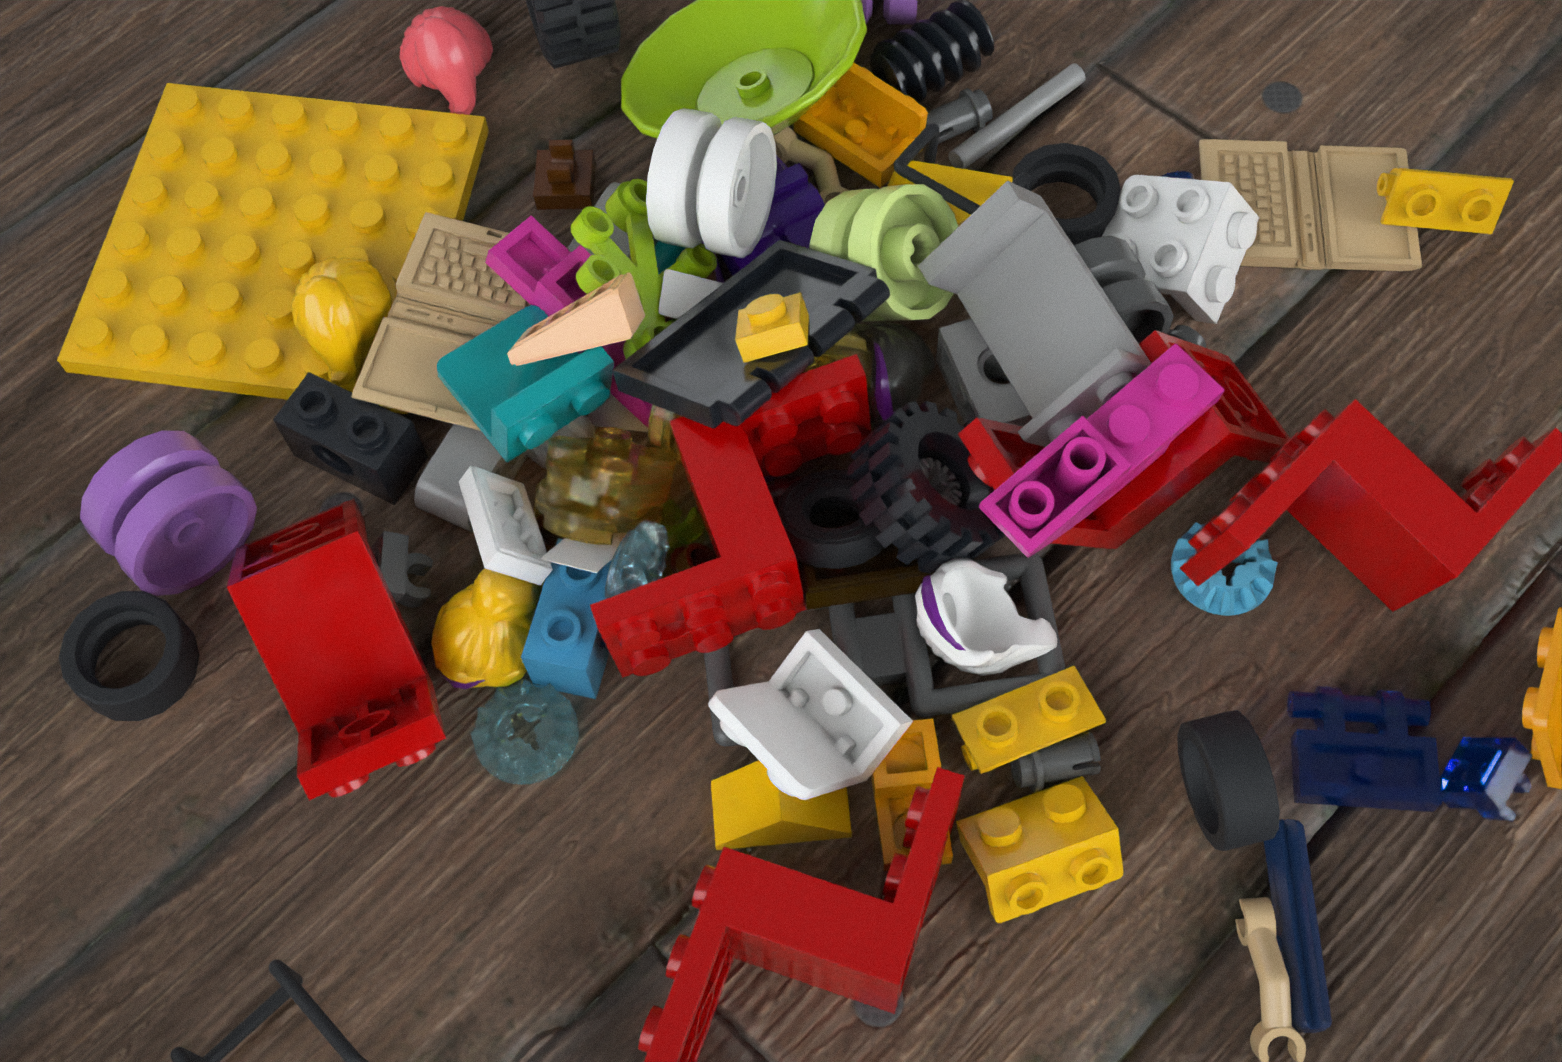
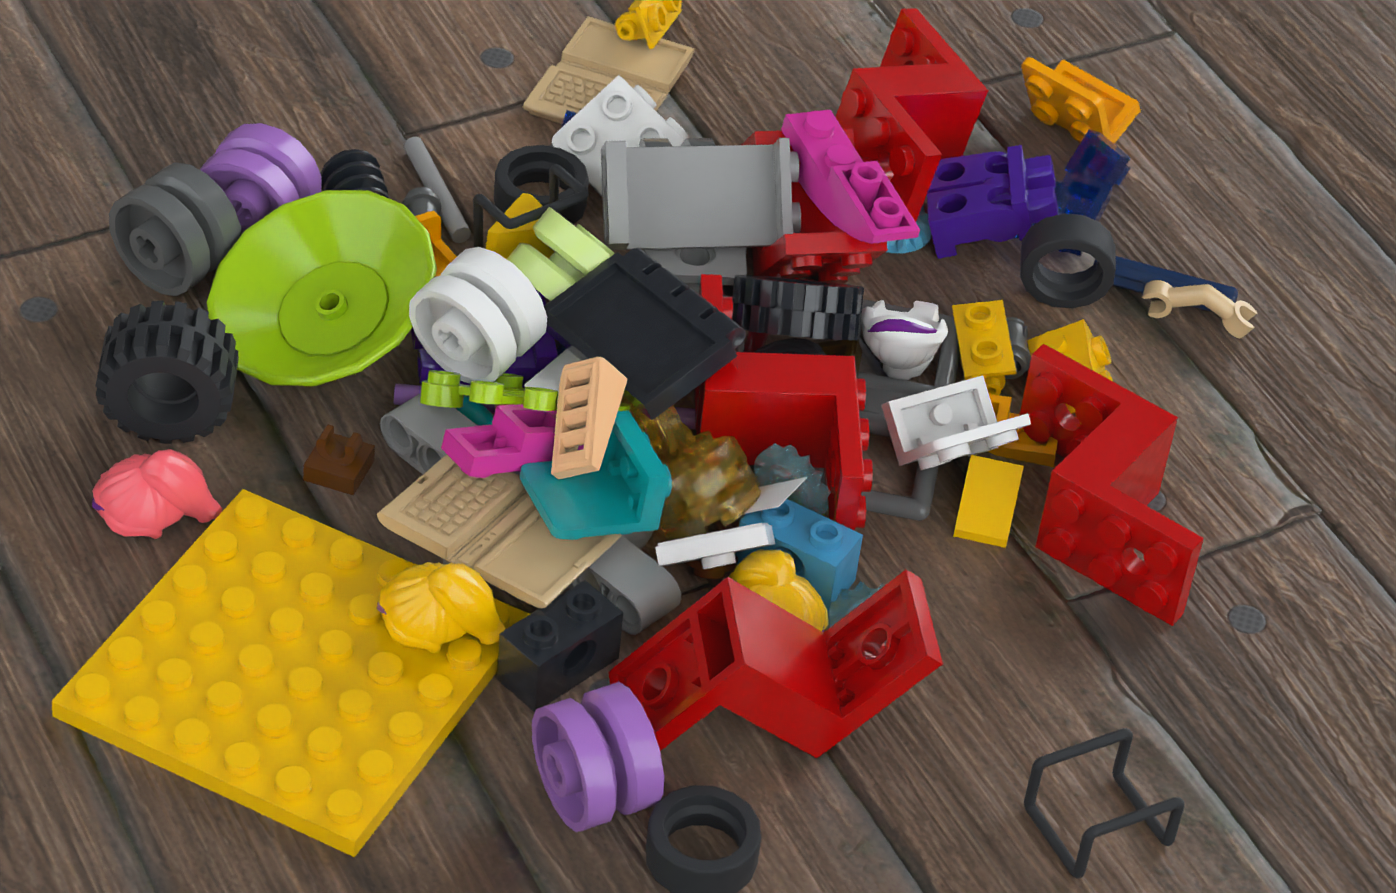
camera: 80 degrees left, 20 degrees down
(772, 326) = (664, 300): yellow plate -> none
(1300, 653) = (989, 198): none -> dark purple hips

